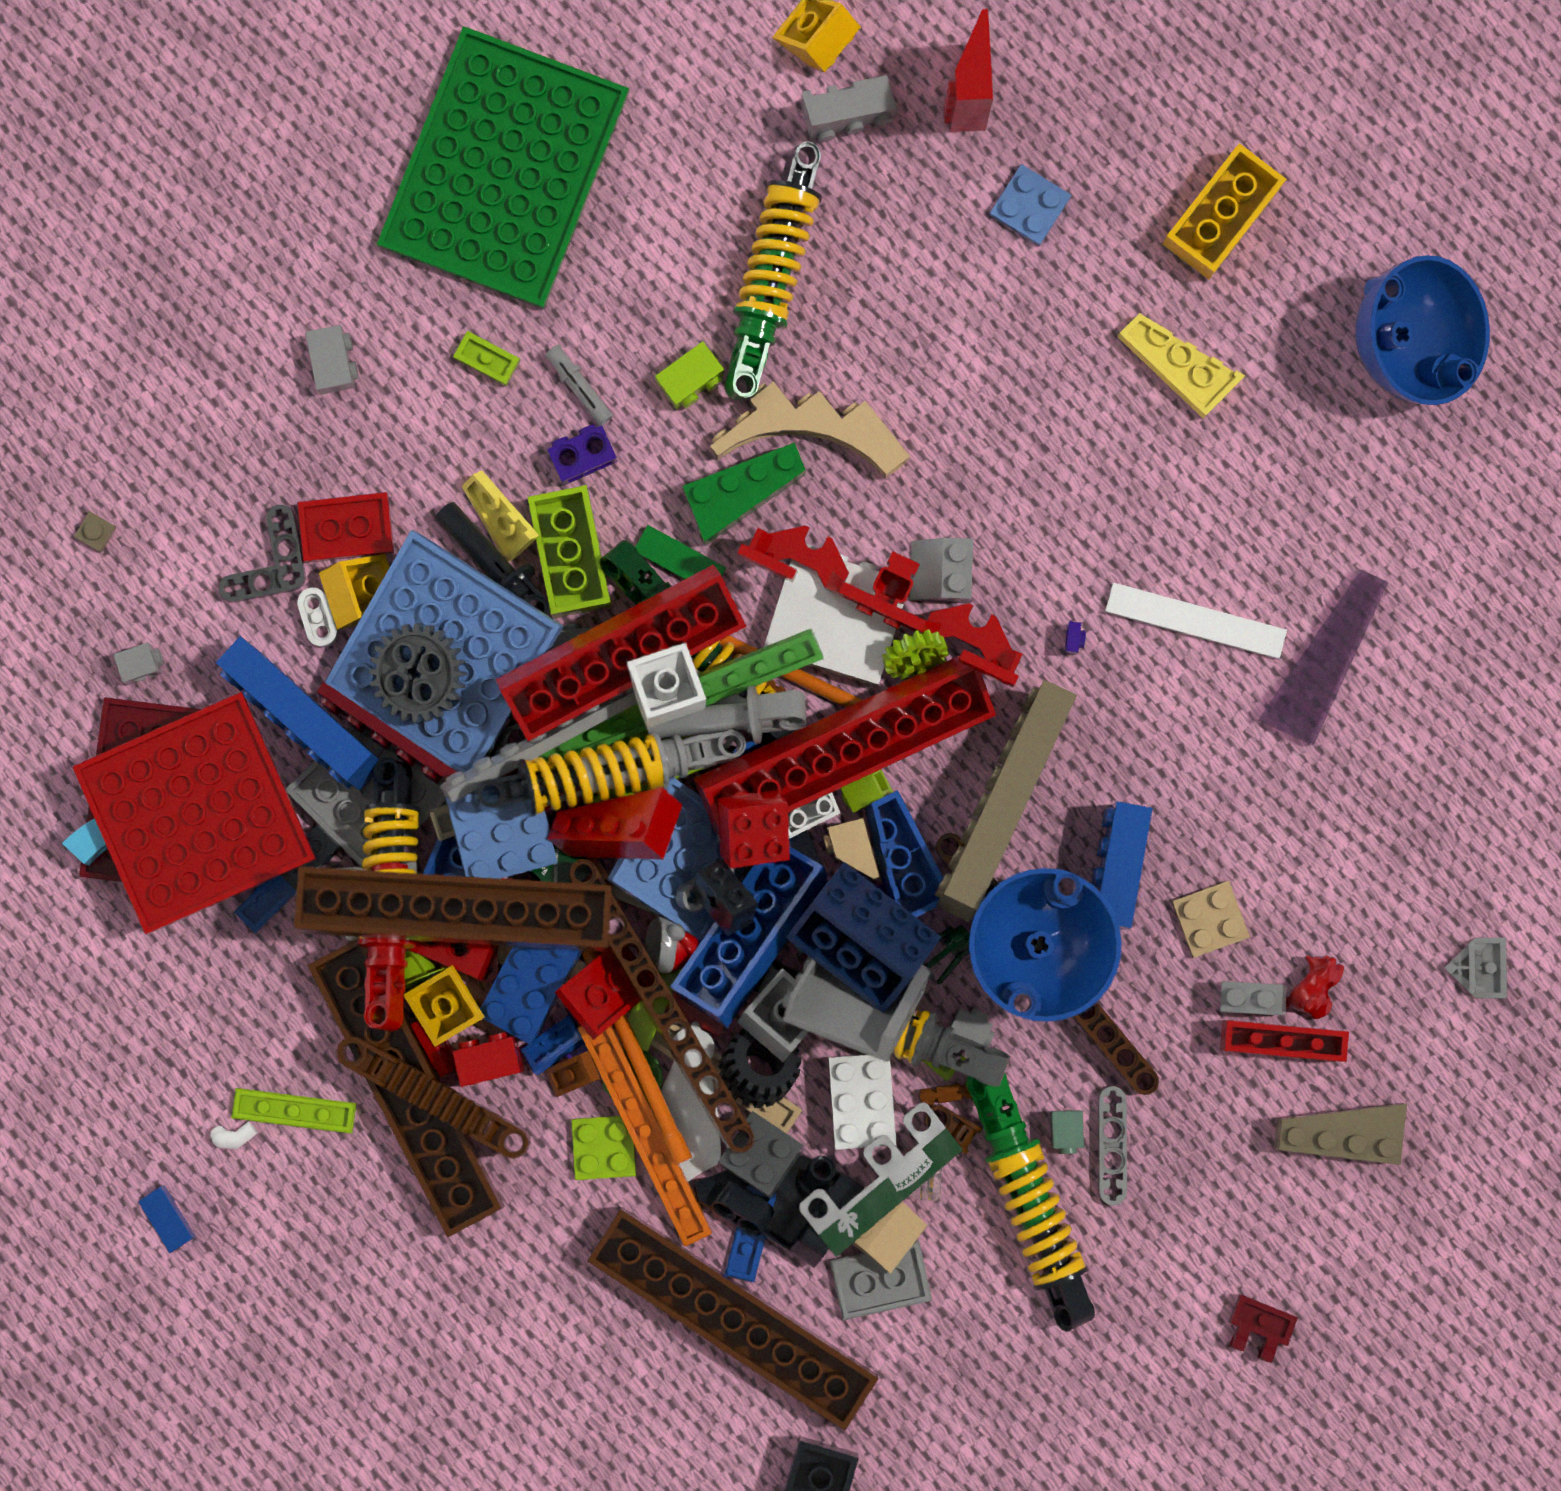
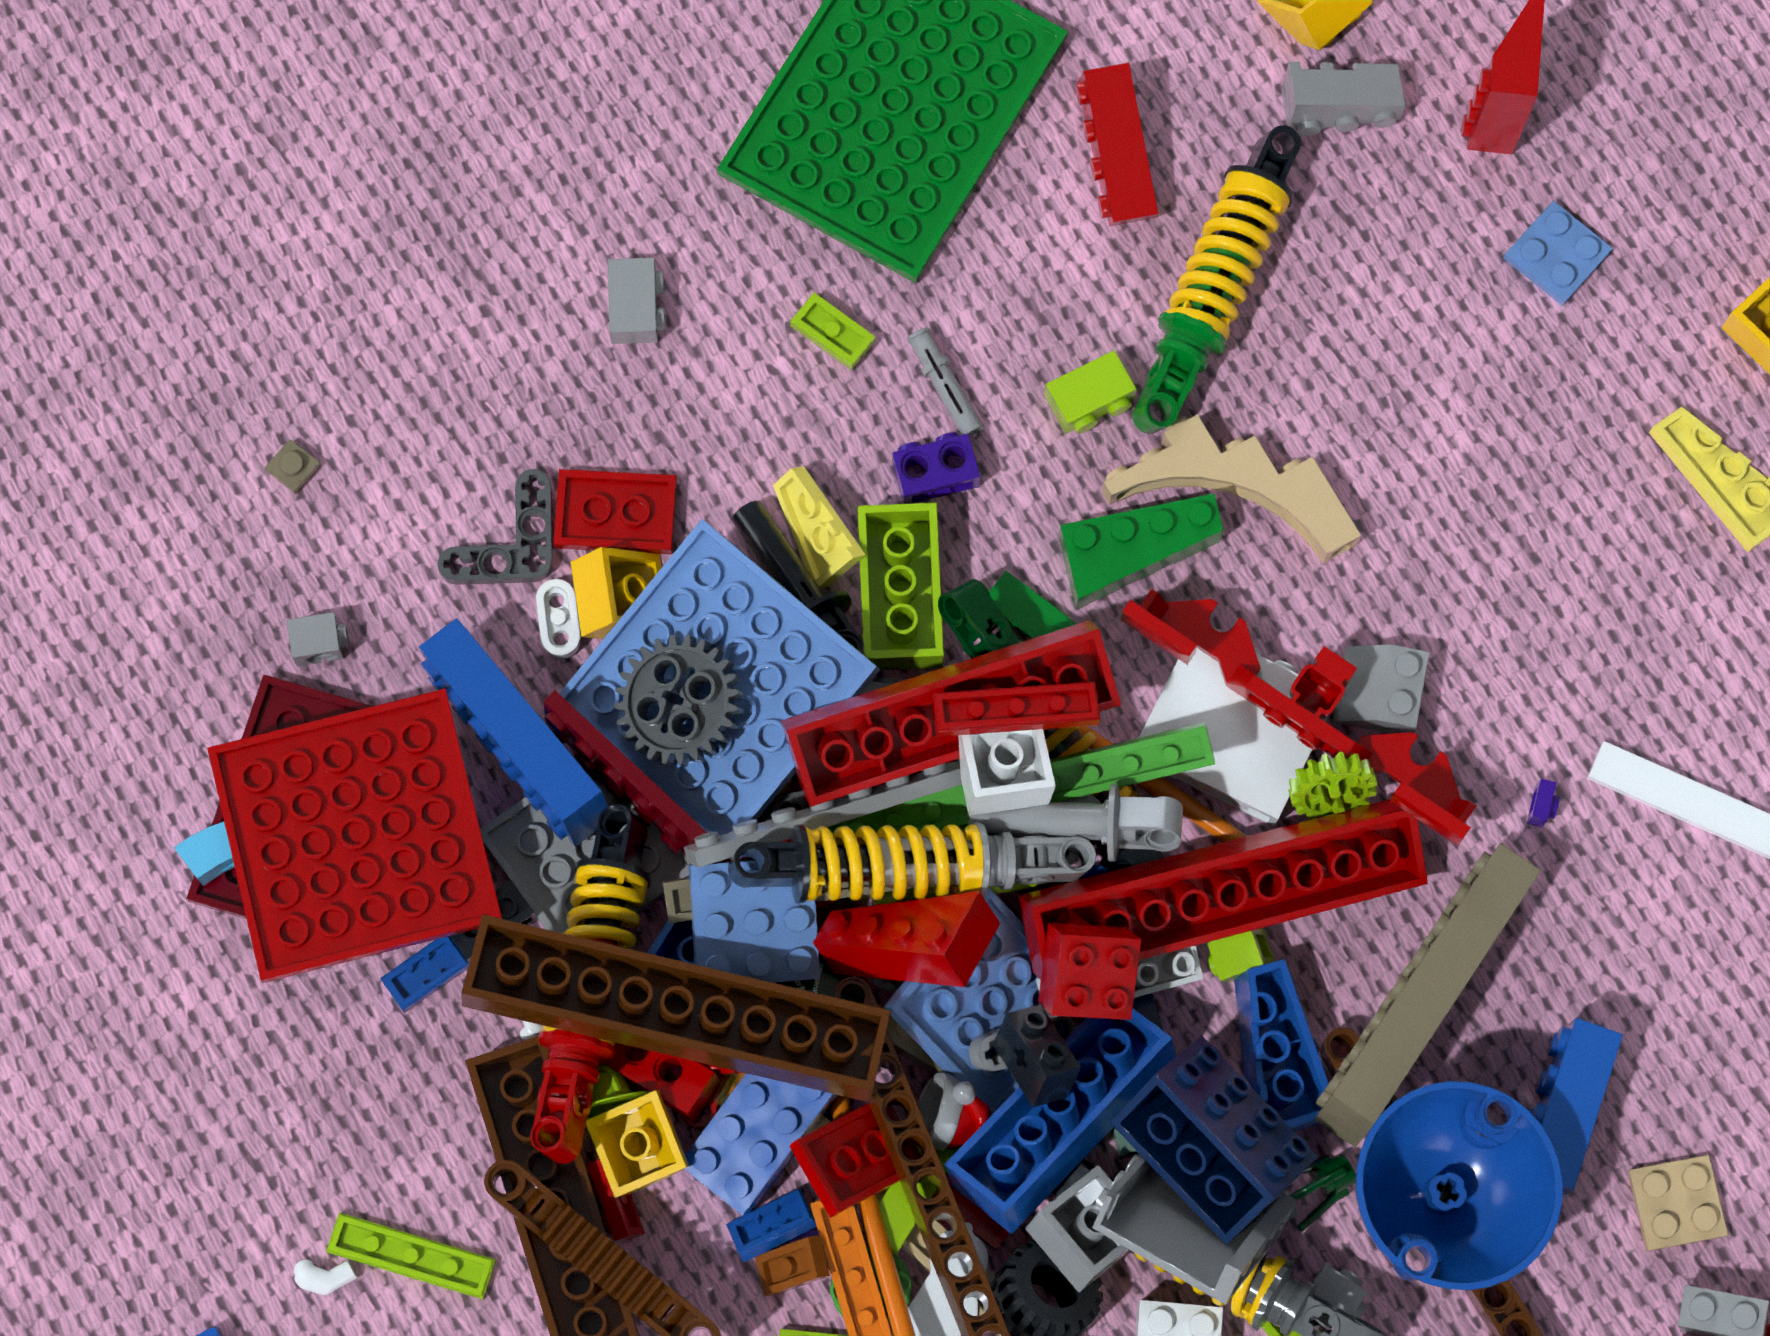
camera: 10 degrees right, 10 degrees down
(489, 1060) = (683, 1227): red brick -> none
(668, 645) = (1015, 709): none -> red tile
(680, 175) = (1117, 144): none -> red wedge
(851, 845) = (1215, 1016): tan slope -> none

